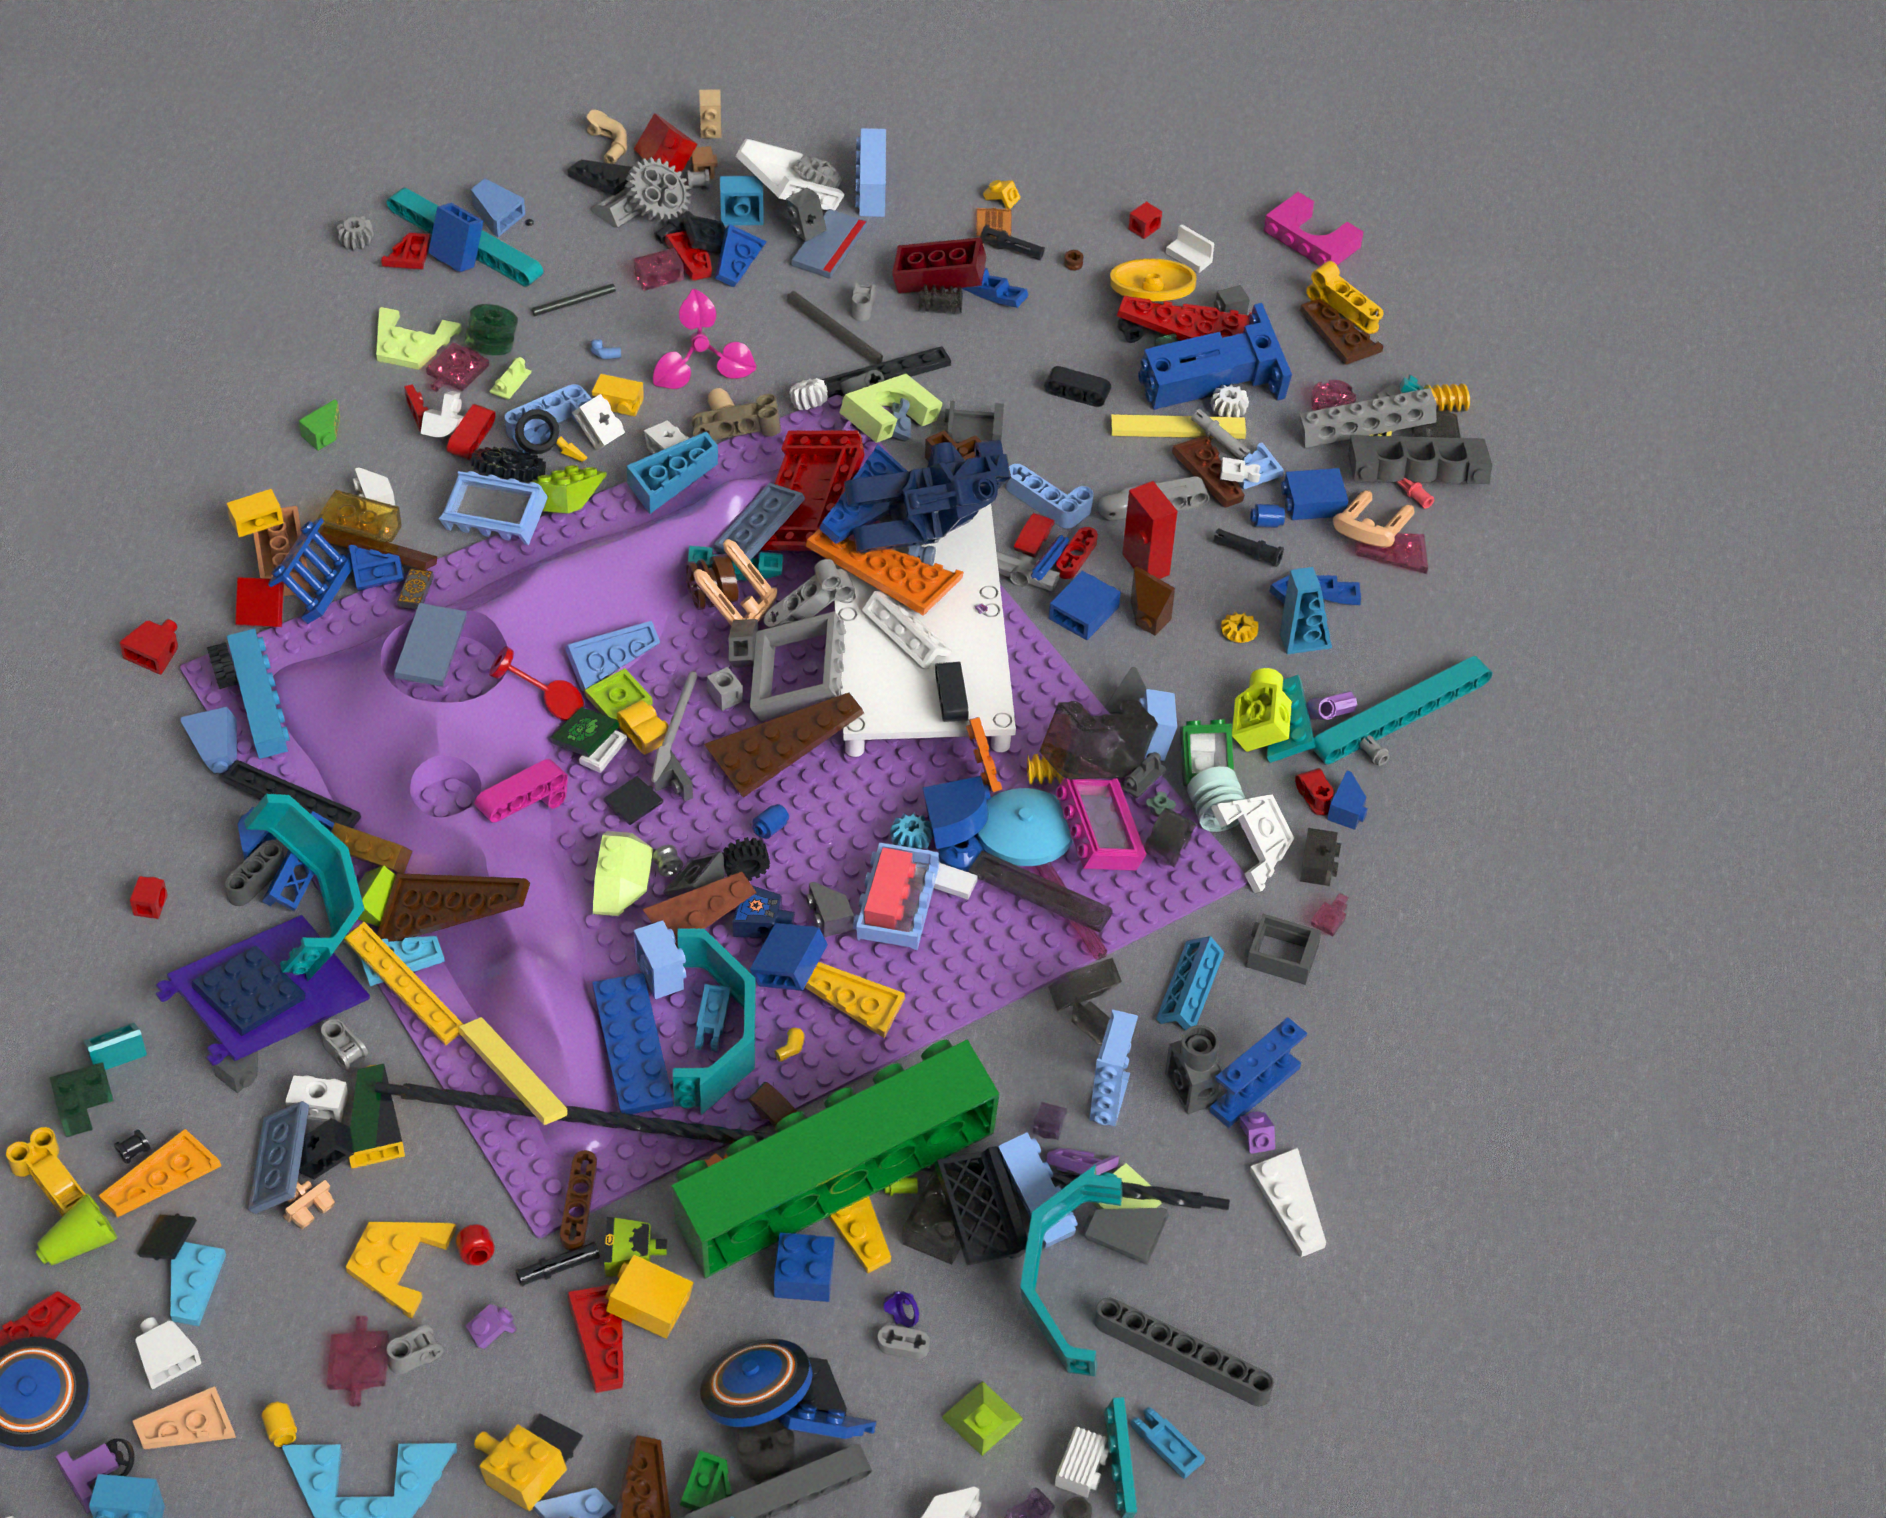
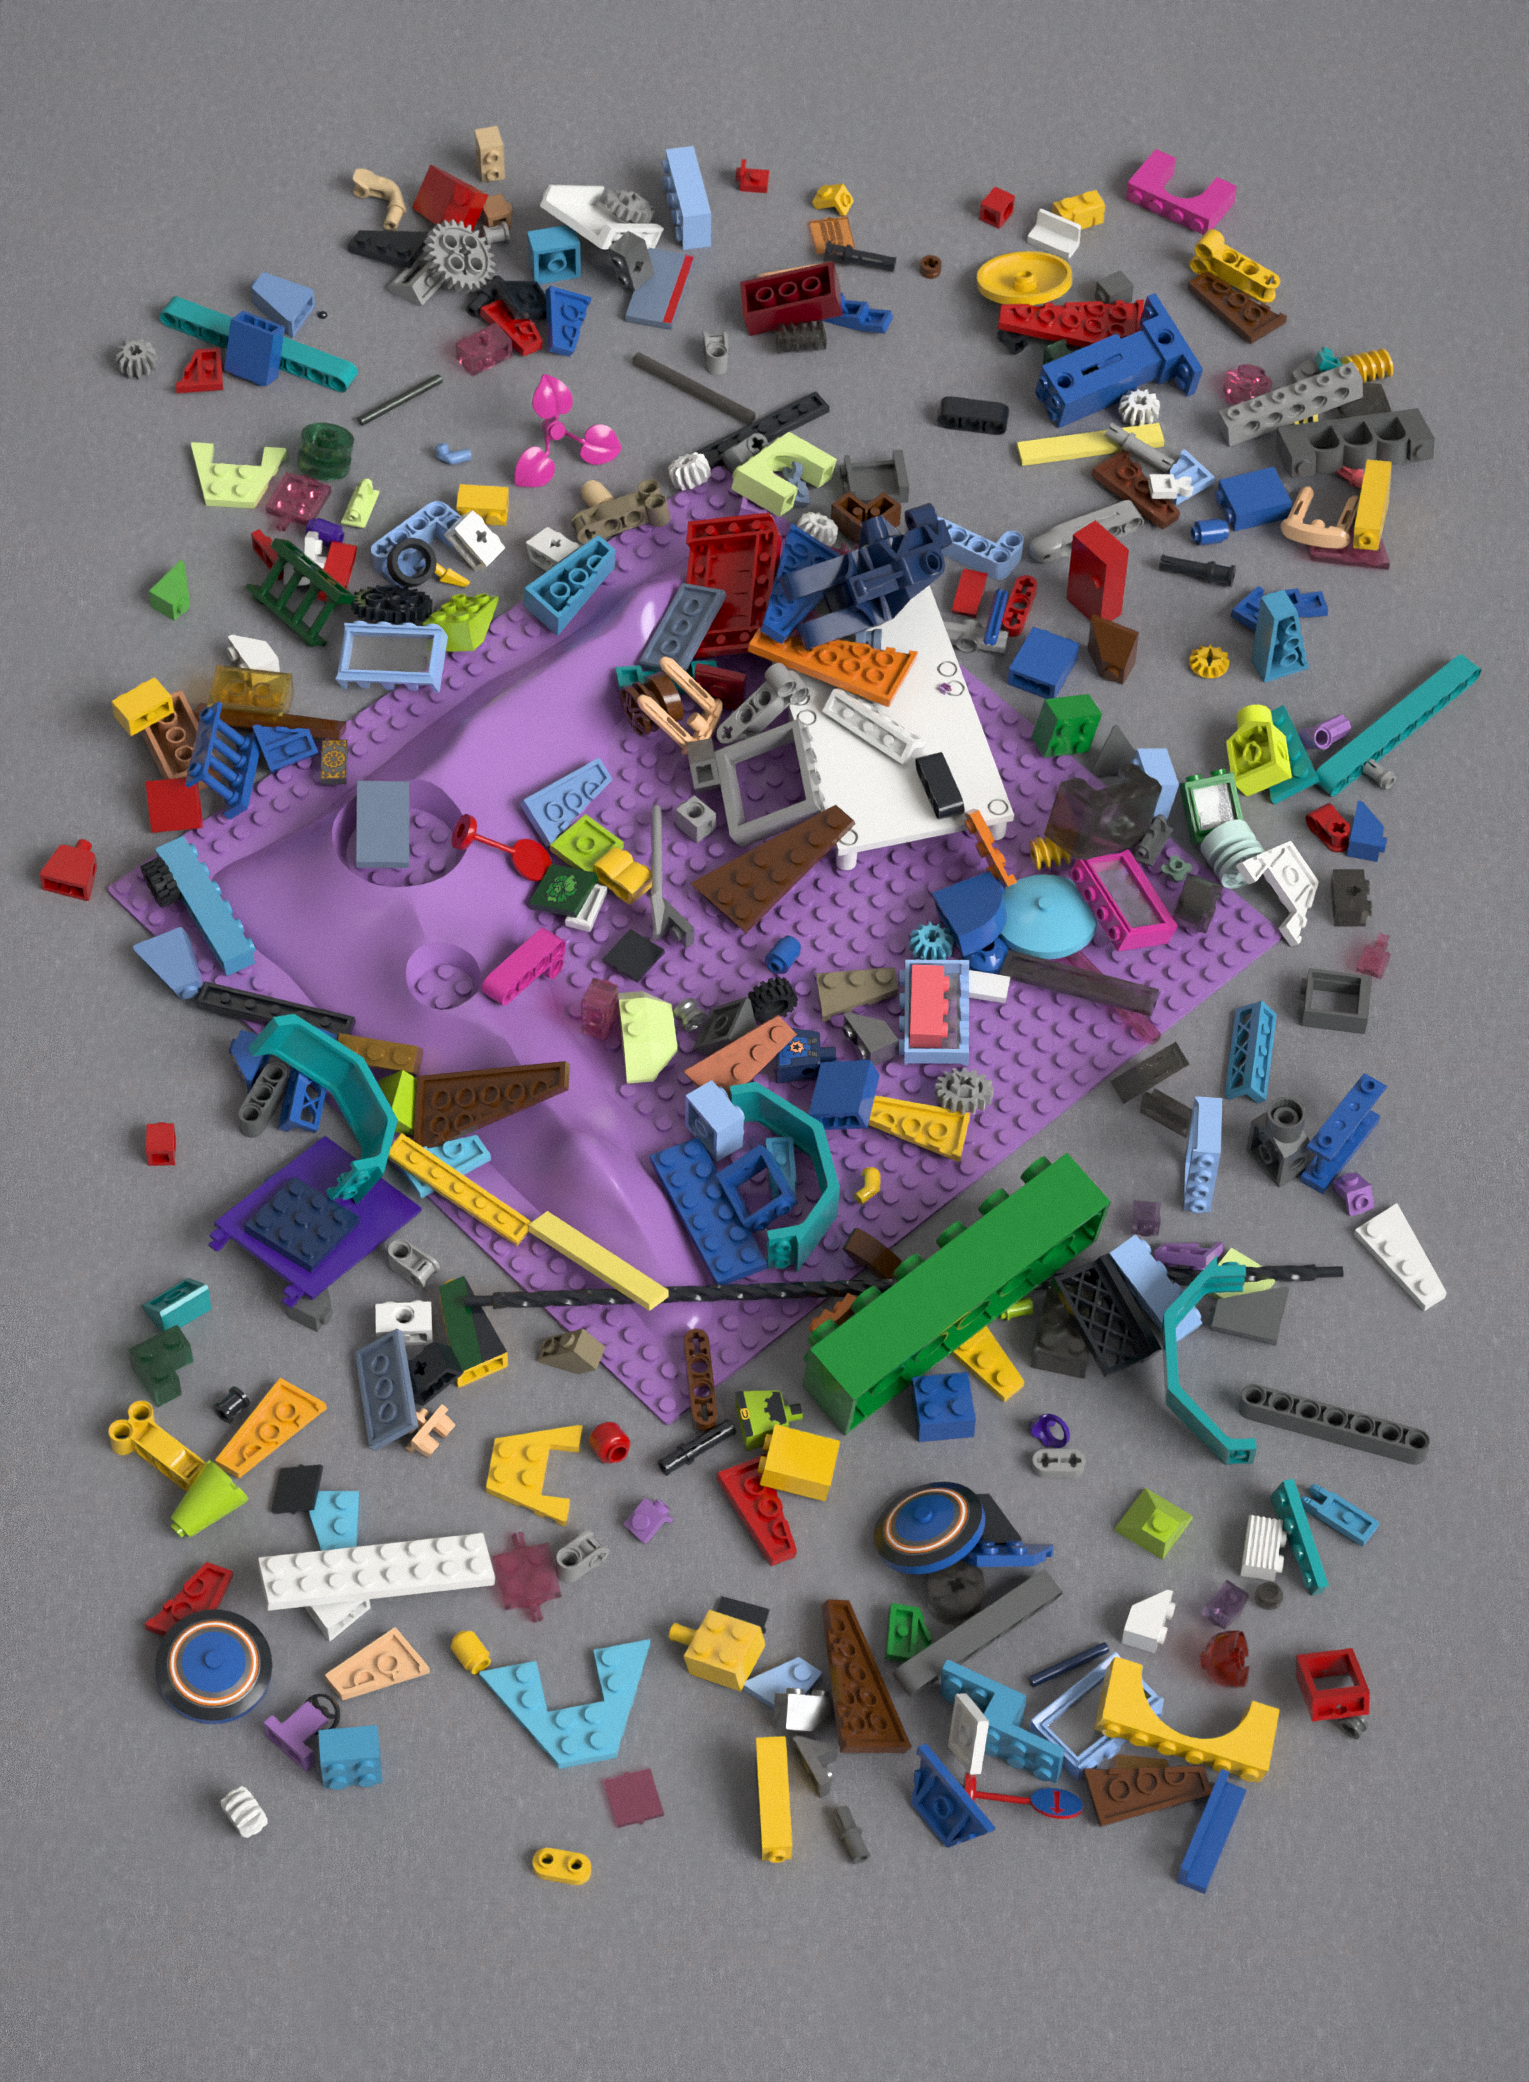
camera: 10 degrees left, 5 degrees up
(210, 1328) = (375, 1571): none -> white plate
(446, 433) = (319, 581): none -> dark green fence
(466, 1152) = (572, 1352): none -> dark tan slope
(472, 395) = (326, 531): none -> dark purple brick
(582, 840) = (599, 1008): none -> clear pink brick
(664, 1014) = (745, 1169): none -> blue window
(779, 573) = (722, 684): none -> dark red tile
(825, 862) = (849, 989): none -> dark tan wing
(904, 972) = (964, 1091): none -> light grey gear
(909, 456) = (819, 527): none -> white gear
(935, 168) = (752, 179): none -> red bracket
(1089, 660) = (1066, 725): none -> green brick
(1221, 231) = (1081, 209): none -> yellow brick
(1421, 513) = (1372, 505): none -> yellow slope

